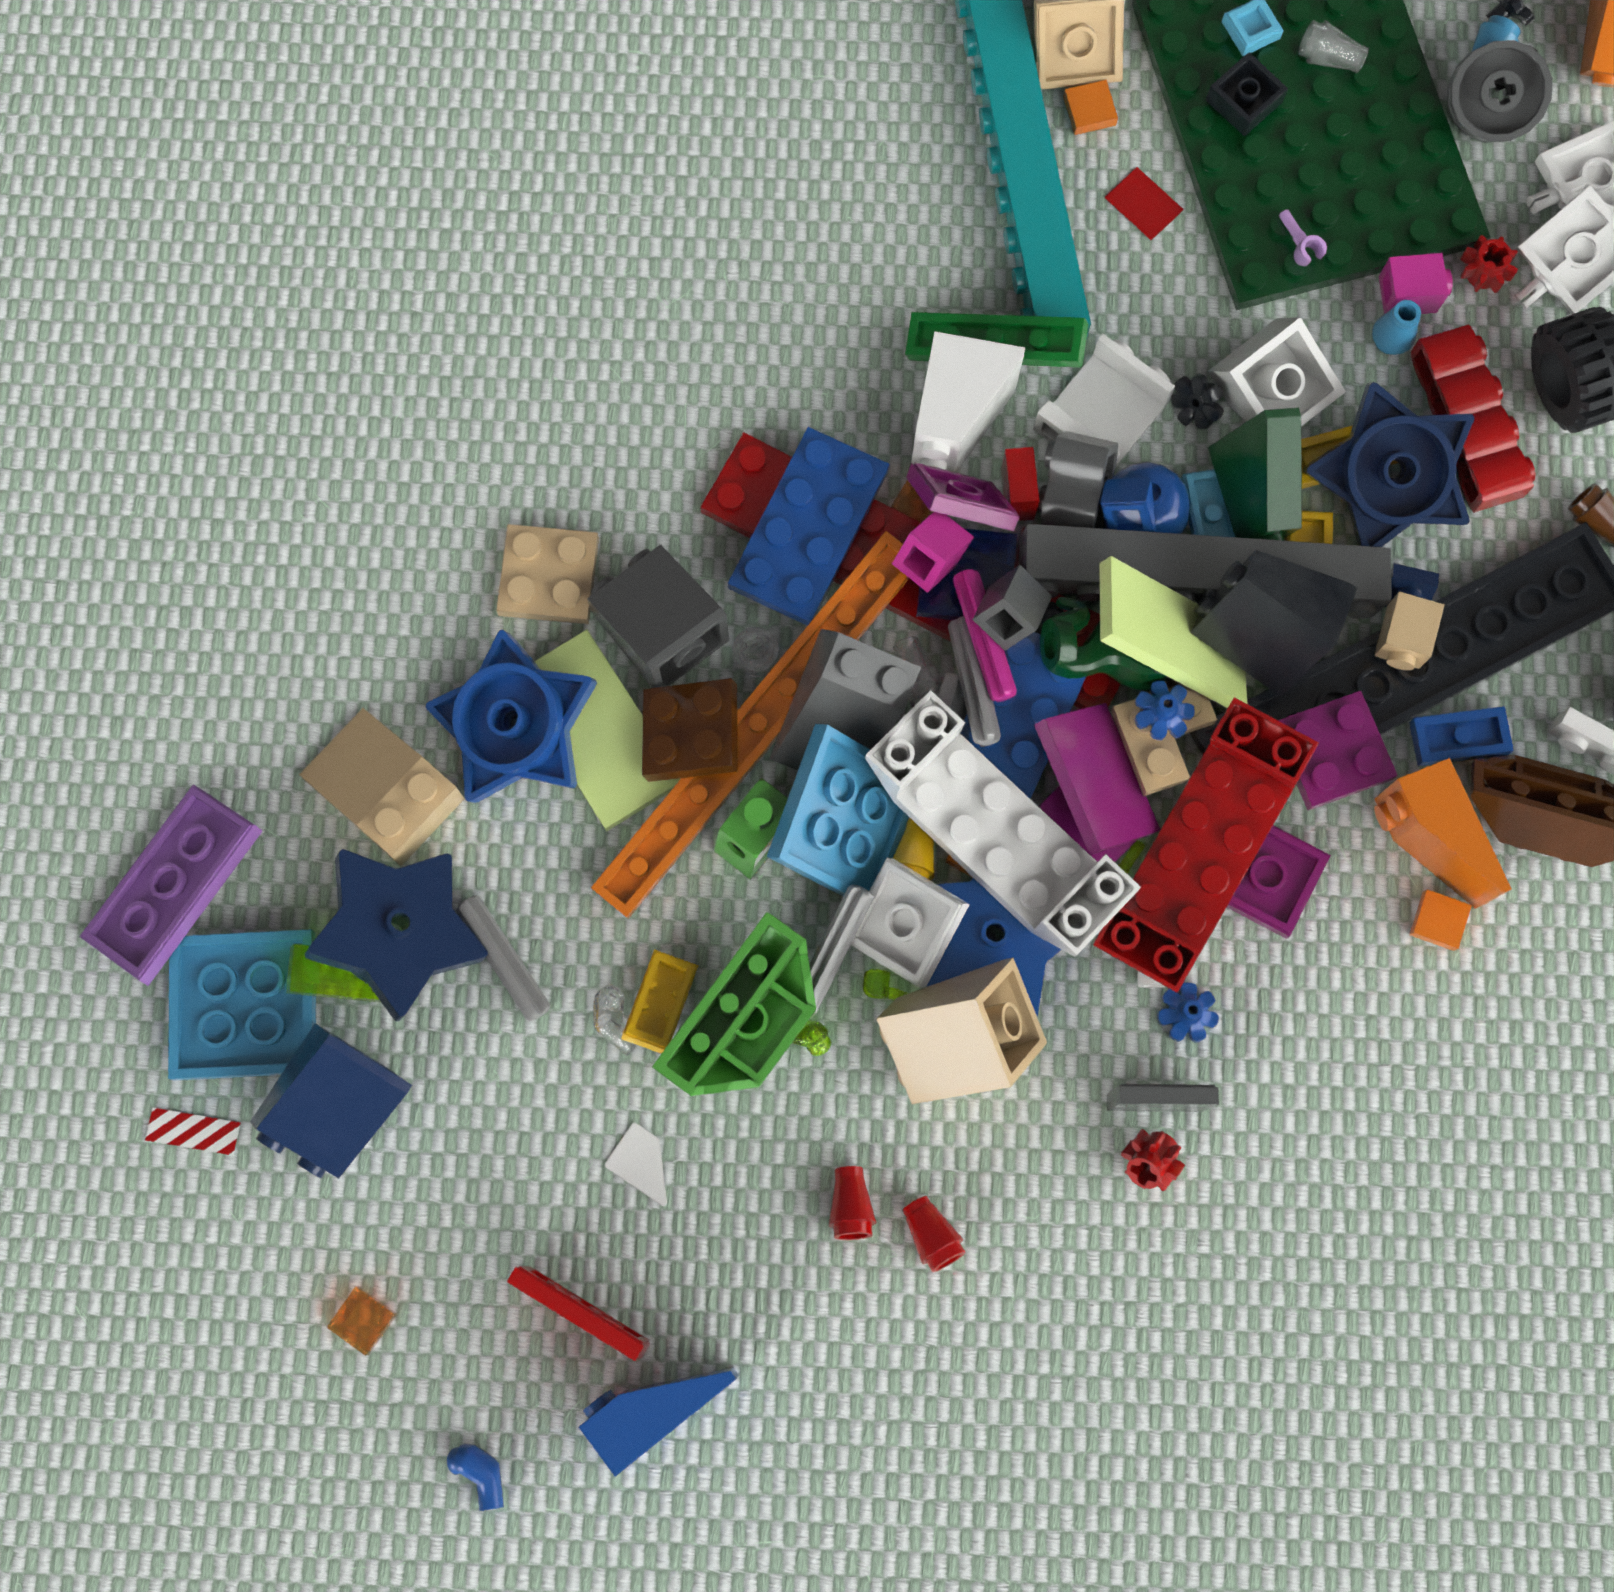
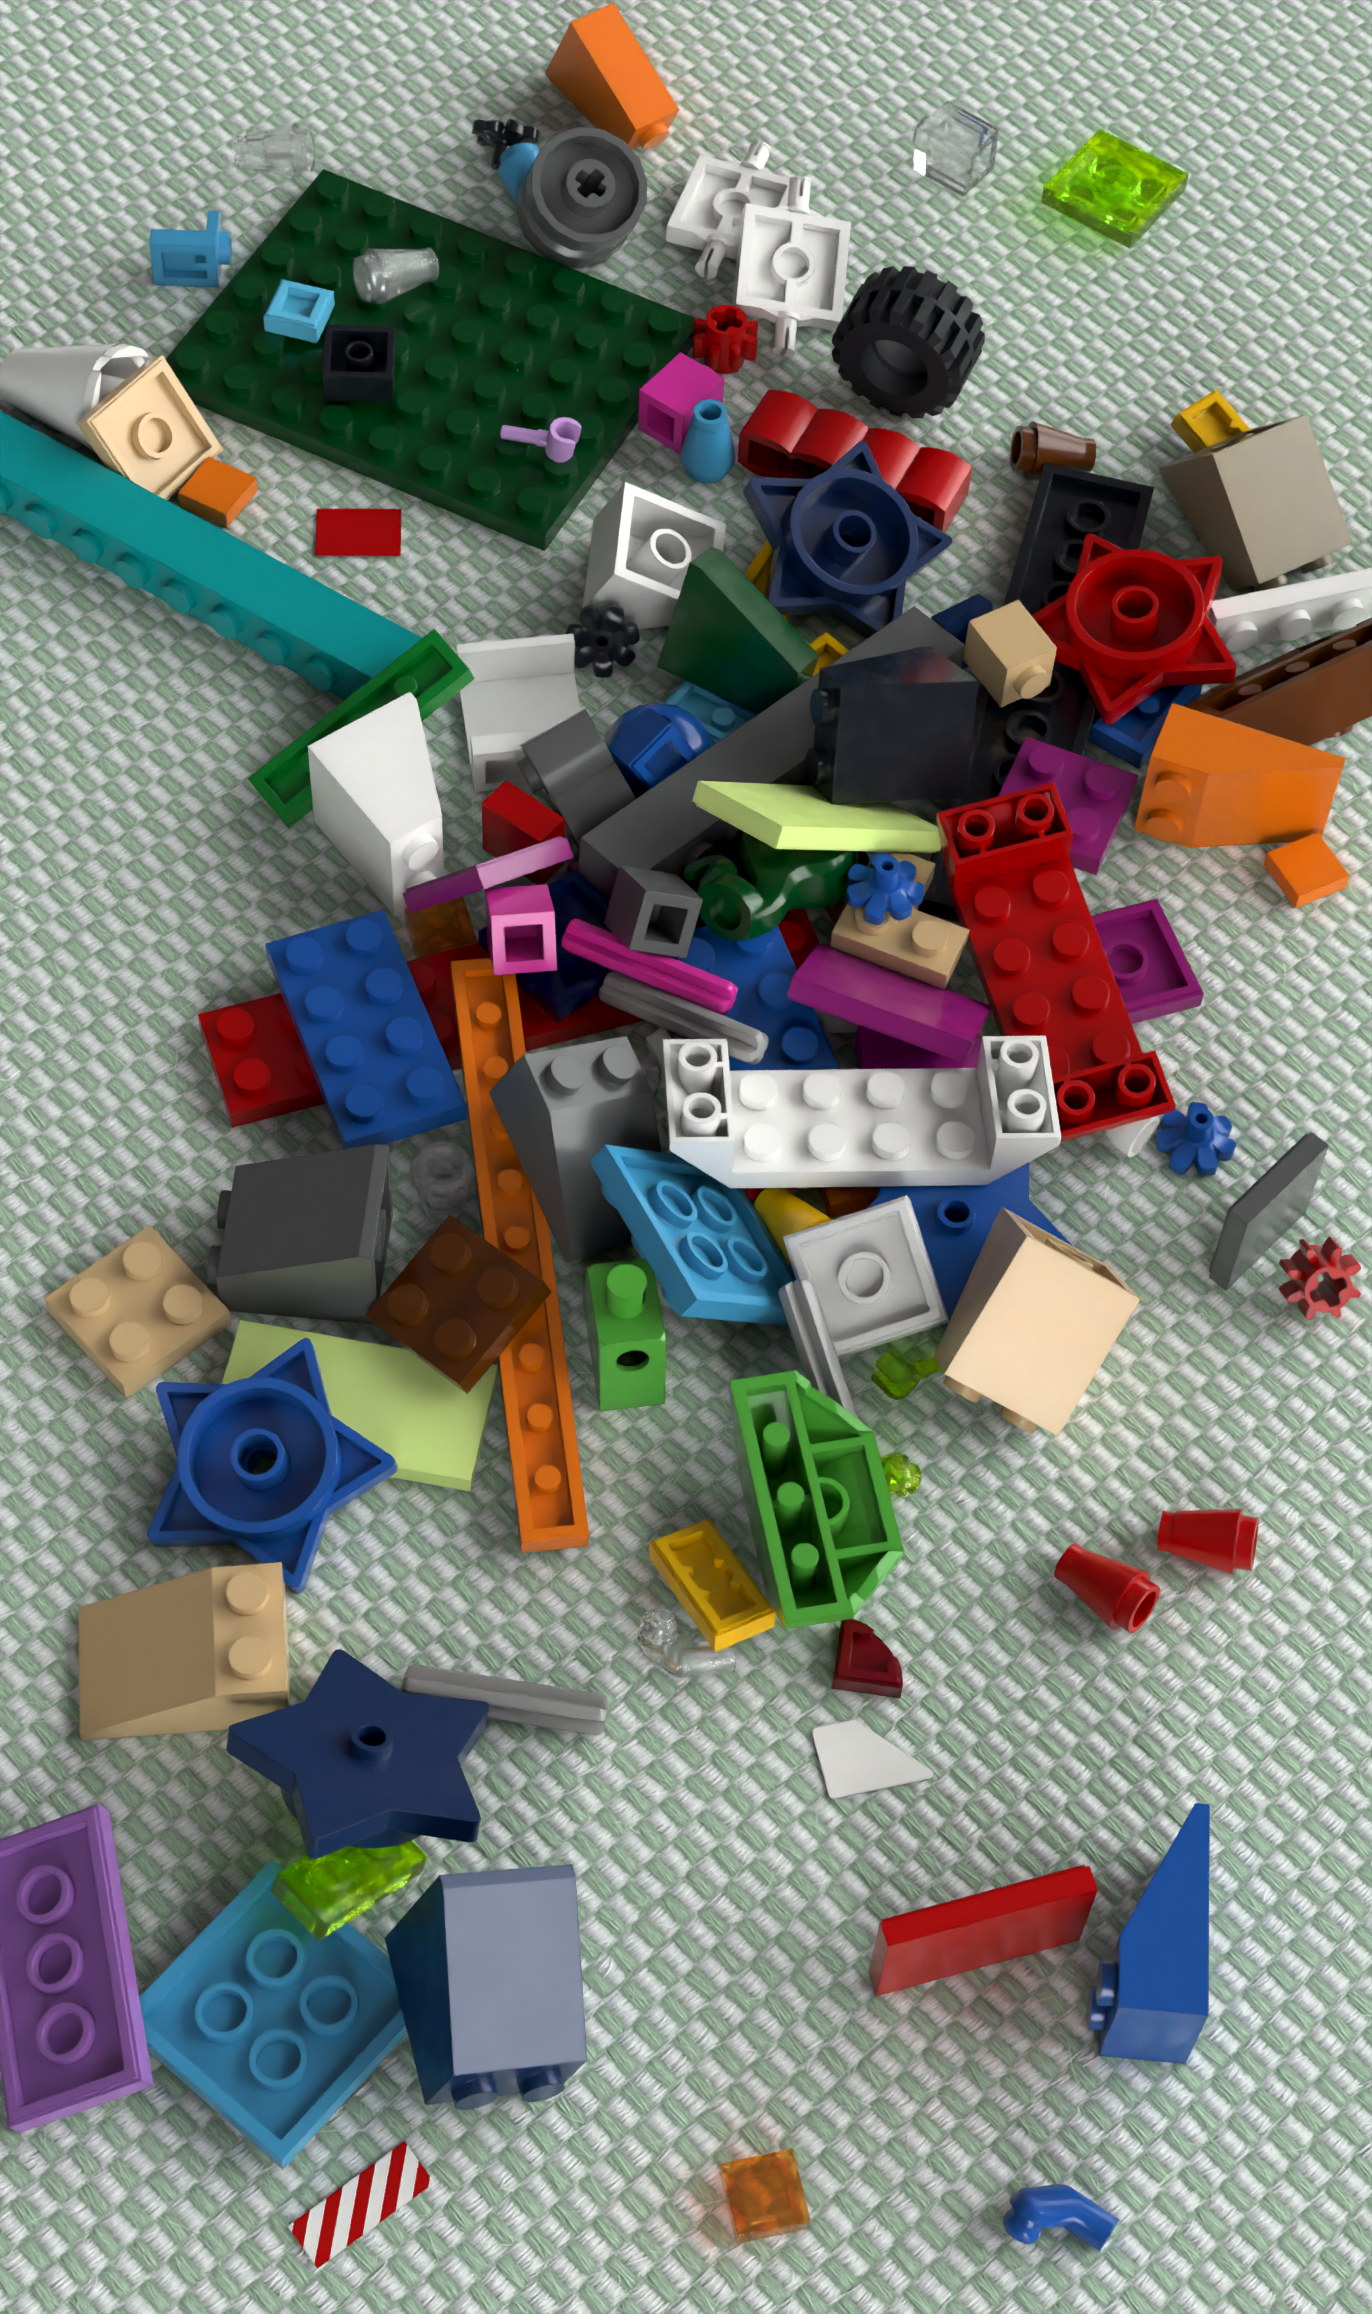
camera: 50 degrees left, 20 degrees down
(693, 1118) = (865, 1662): none -> dark red tile
(1526, 654) = (1137, 625): none -> red plate

